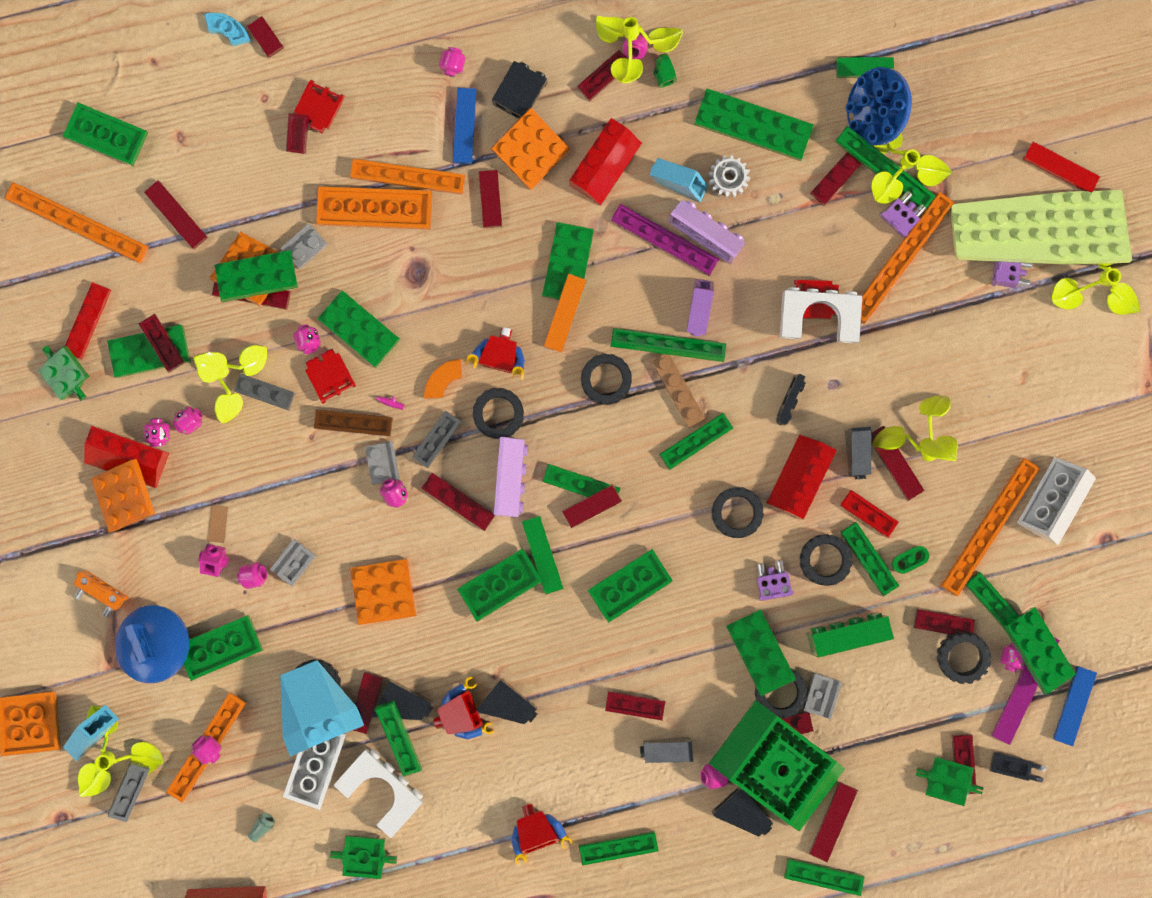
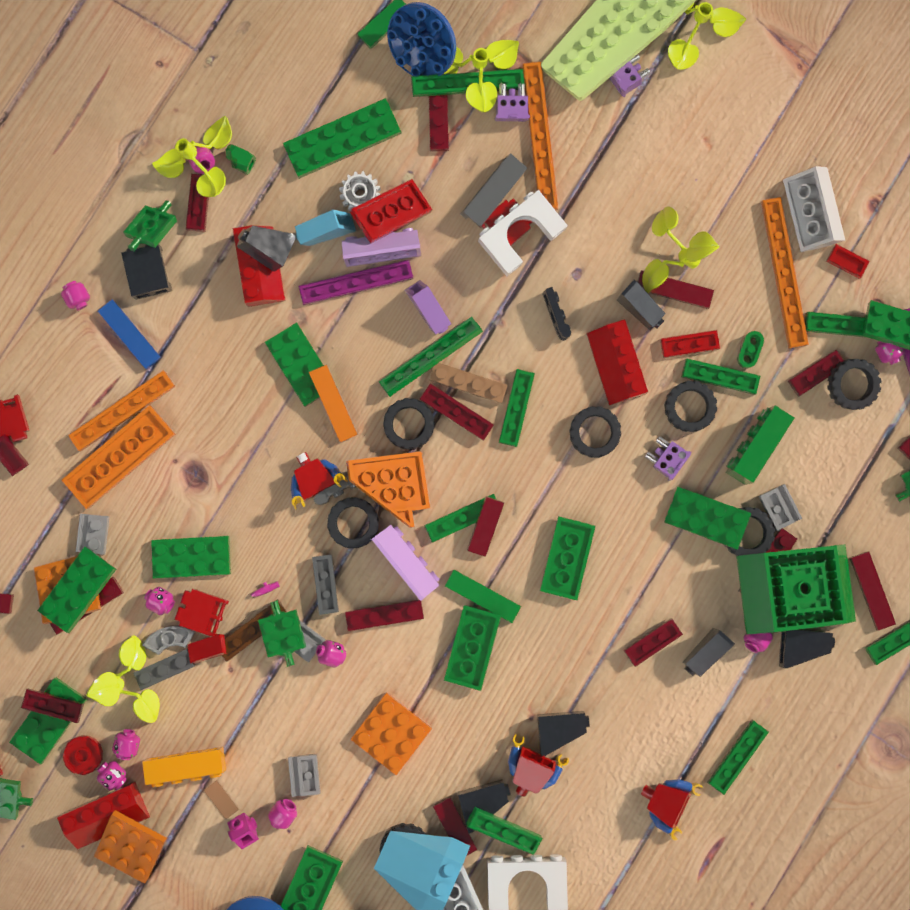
camera: 50 degrees left, 0 degrees up
(150, 399) = (83, 755): none -> red tile
(214, 474) = (184, 766): none -> light orange brick
(289, 371) = (168, 637): none -> light grey tile
(308, 405) = (207, 648): none -> red tile
(372, 445) = (282, 633): none -> green plate
(442, 378) = (287, 537): orange tile -> none
(490, 199) = (199, 370): dark red tile -> none
(506, 377) = (324, 496): none -> dark grey hinge
(530, 148) = (194, 306): orange plate -> none
(553, 60) = (150, 226): none -> green plate
(554, 411) = (393, 482): none -> orange wing
(624, 153) = (266, 245): none -> slope
(649, 403) = (456, 412): none -> dark red plate
(739, 211) = (391, 211): none -> red tile
(830, 266) = (494, 190): none -> dark grey panel
(1045, 562) = (847, 261): none -> red tile

